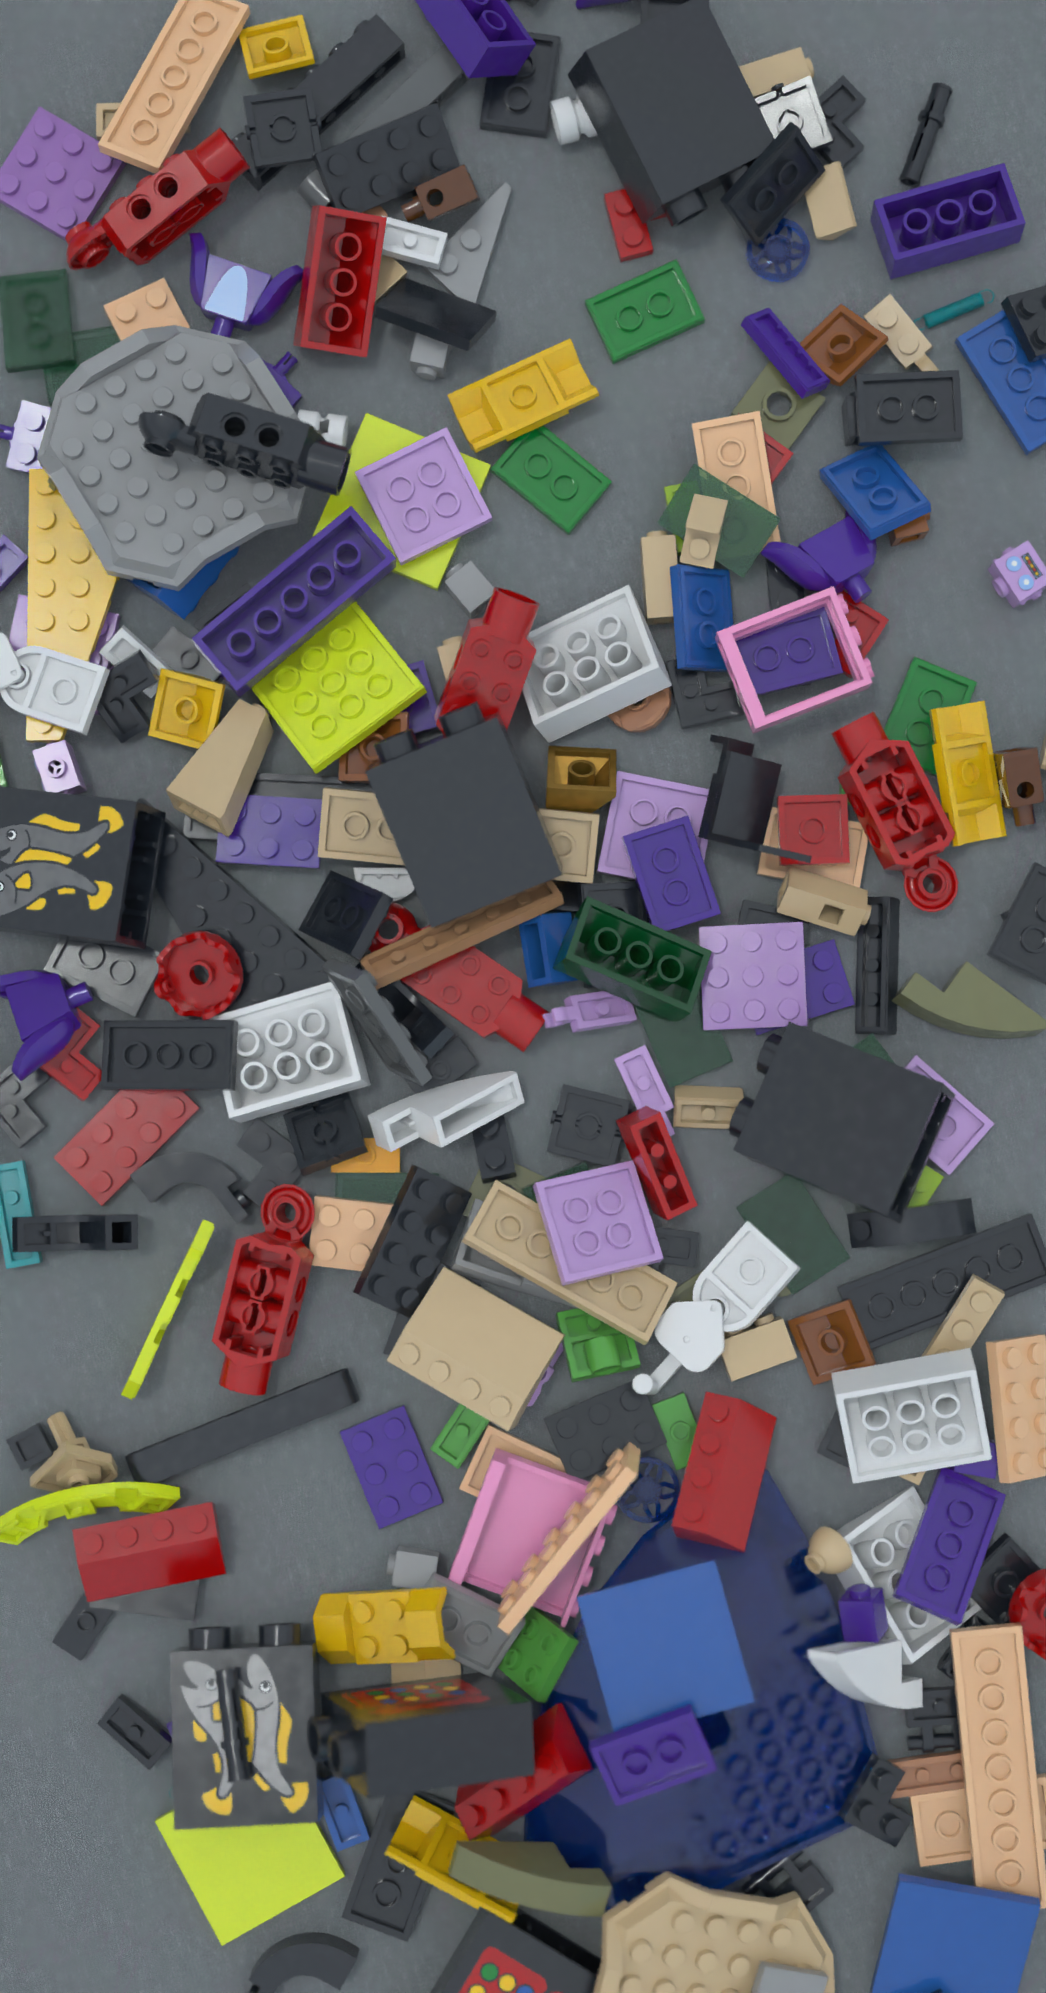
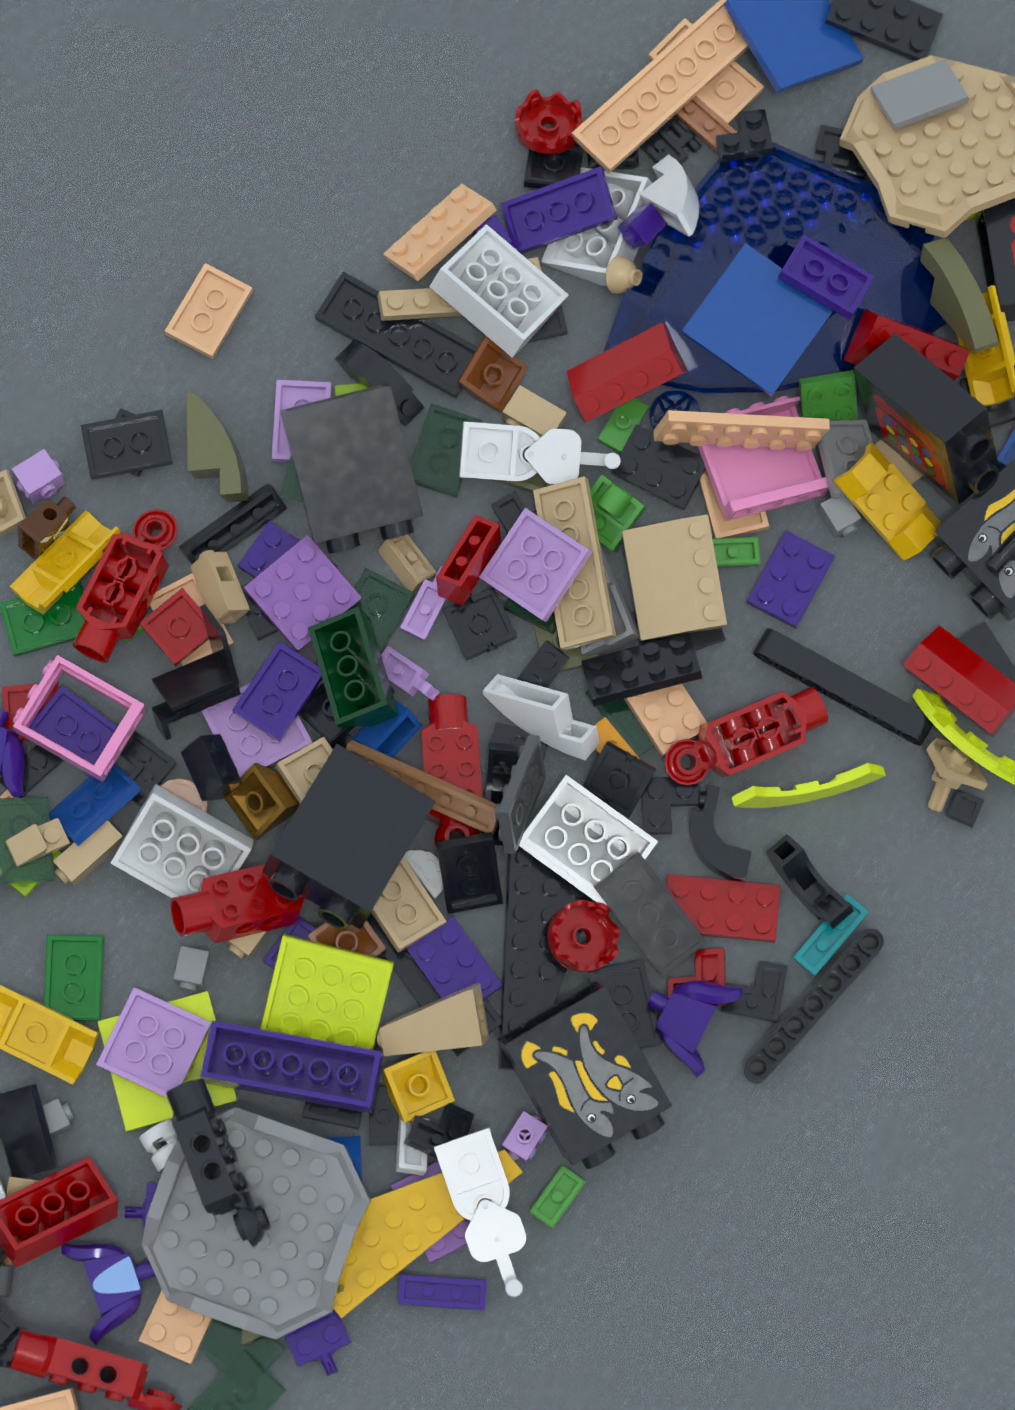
camera: 130 degrees left, 10 degrees down
(648, 754) = (211, 767): none -> black brick

